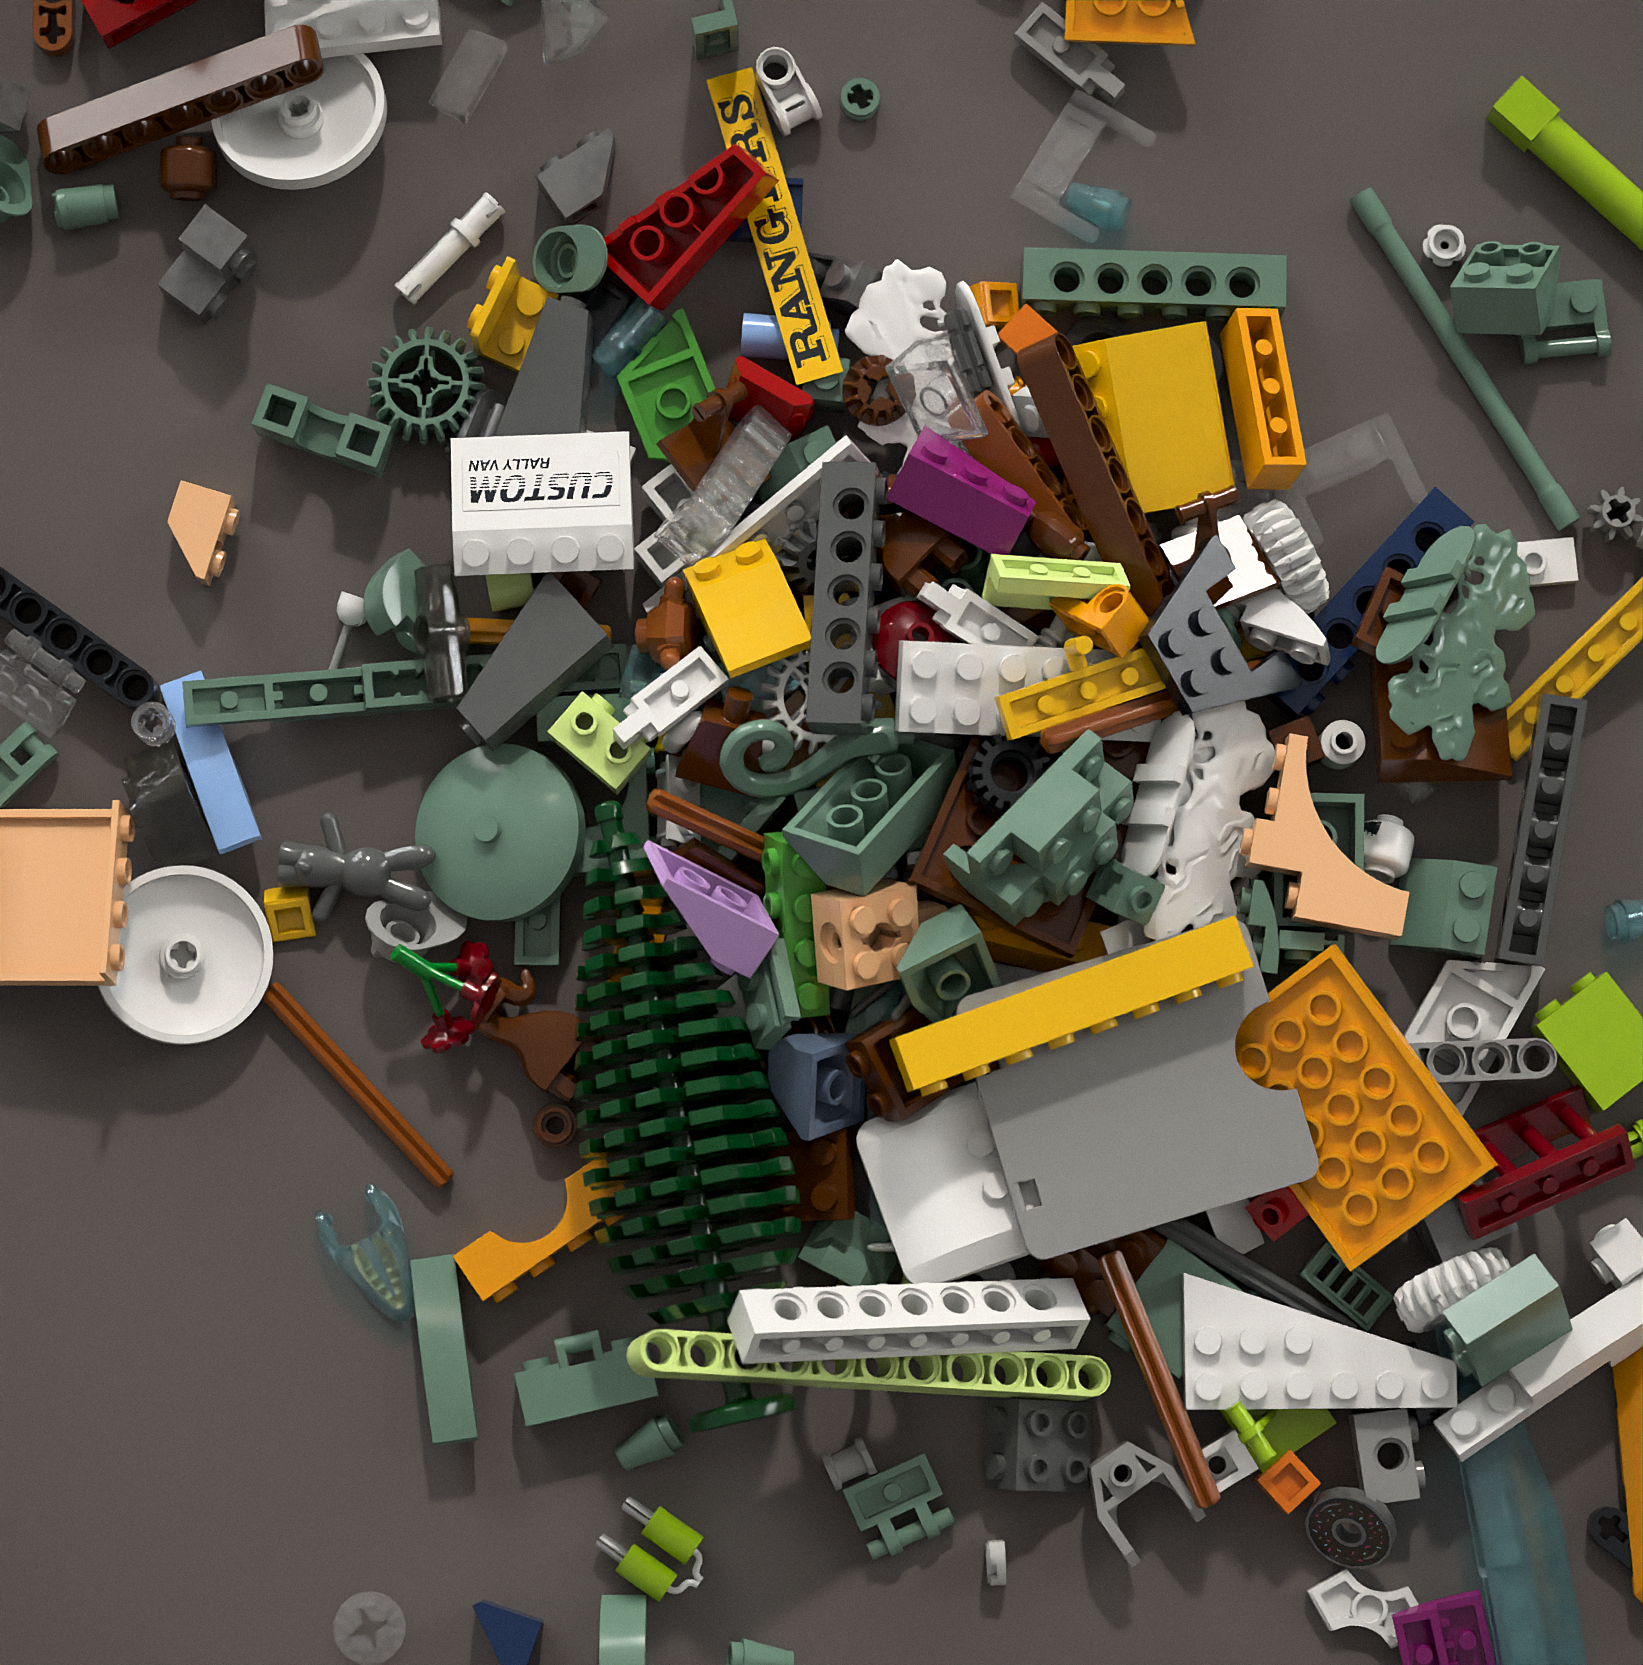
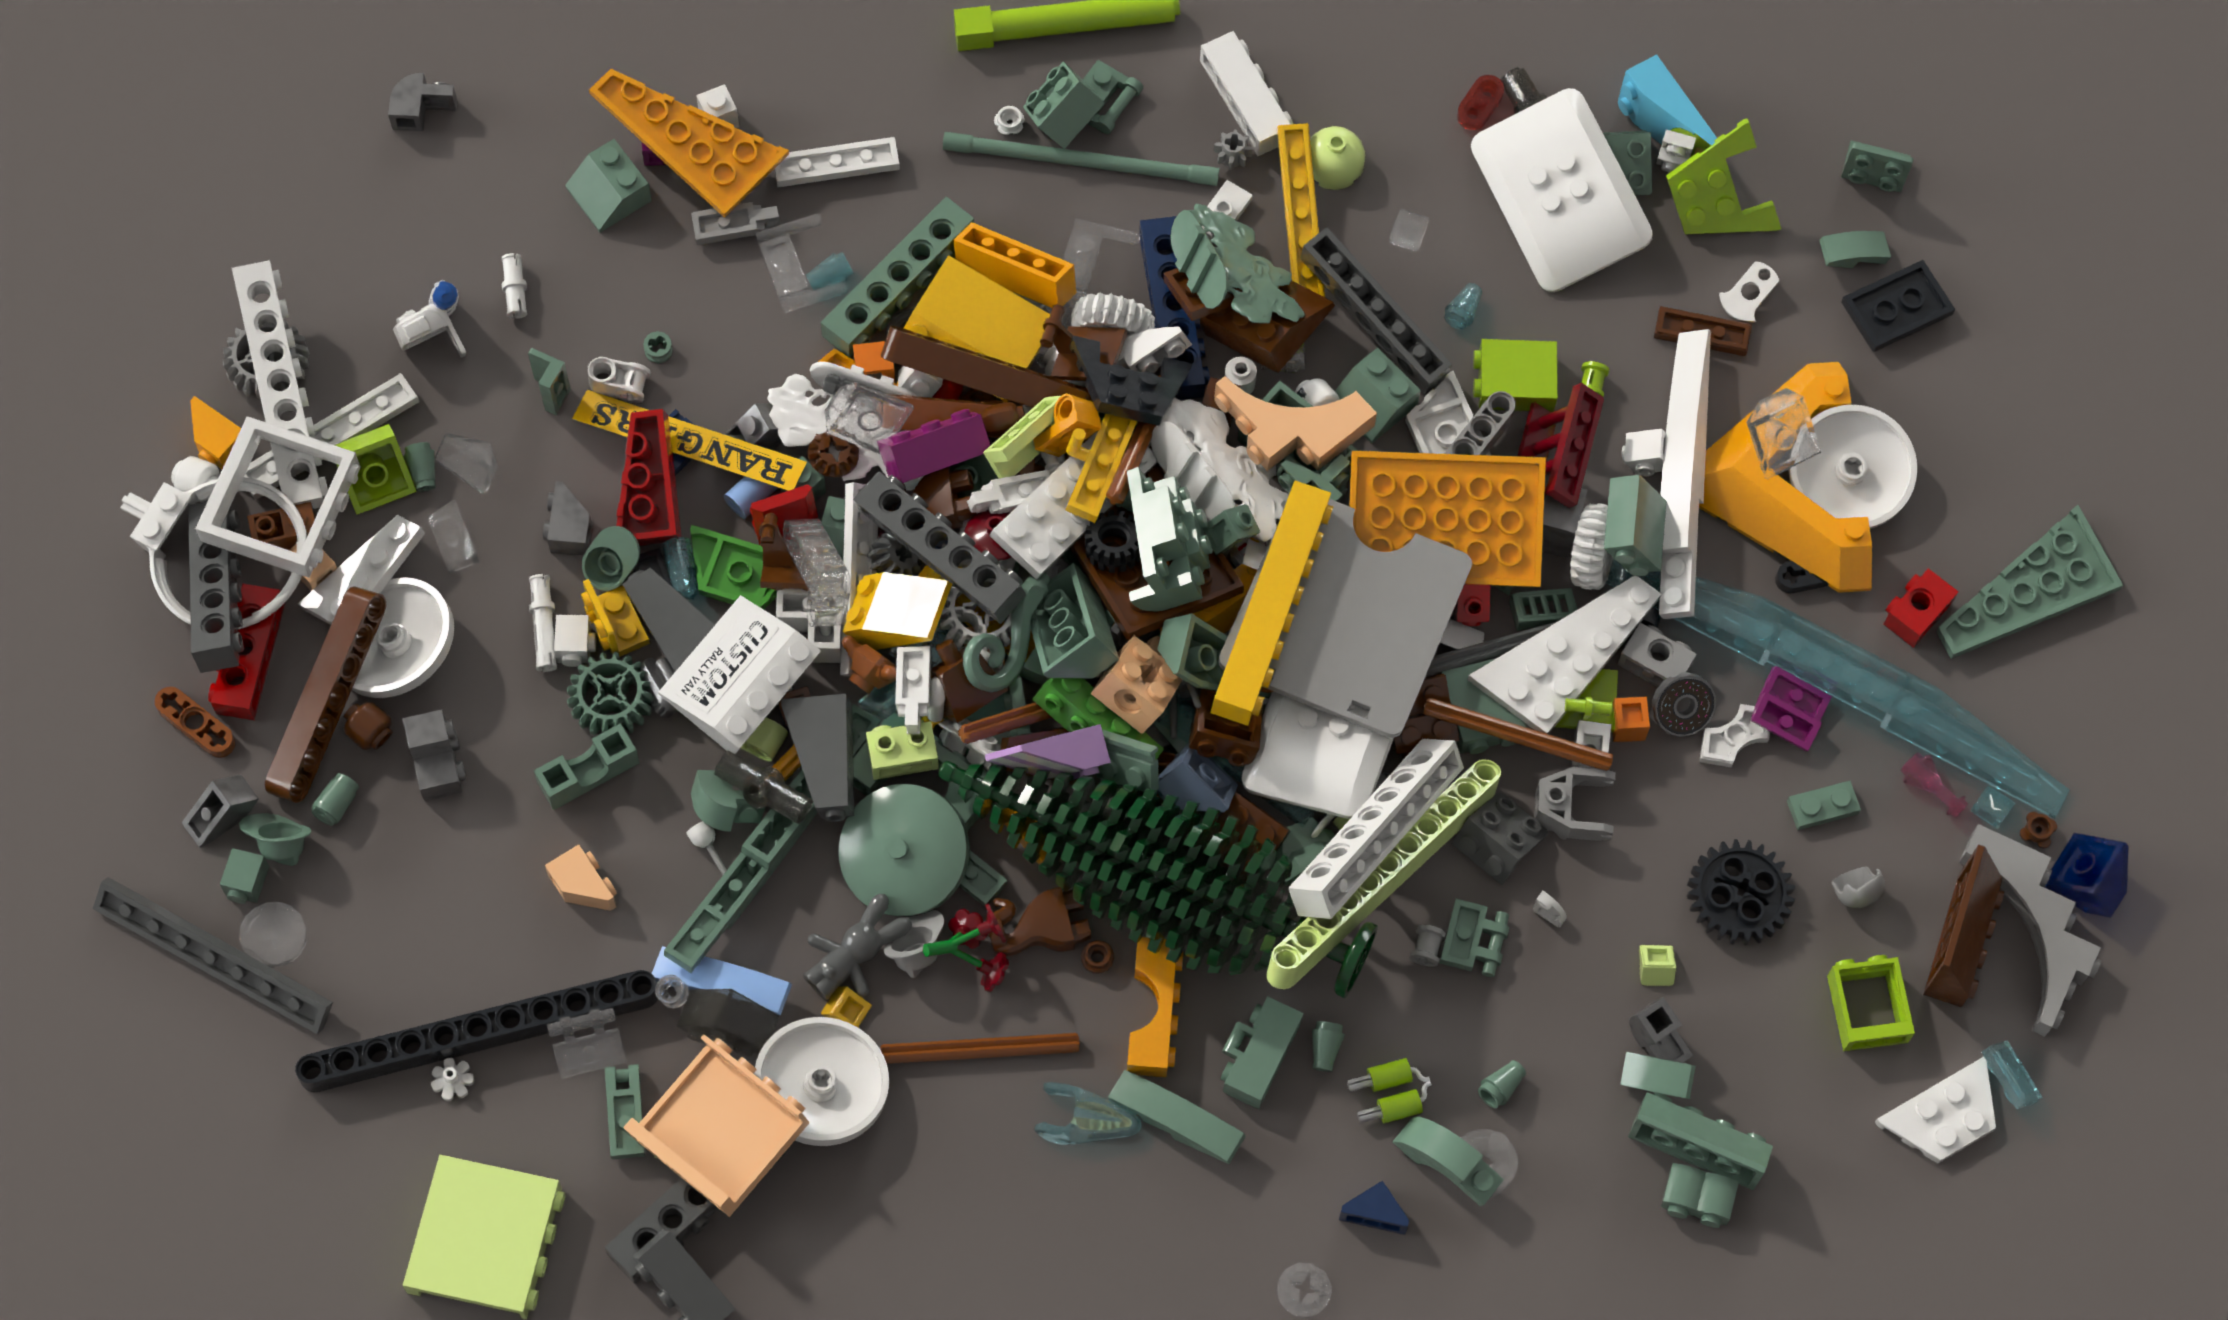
camera: 50 degrees left, 15 degrees down
(453, 296) = (573, 639): none -> white brick
(1236, 104) = (838, 162): none -> white plate

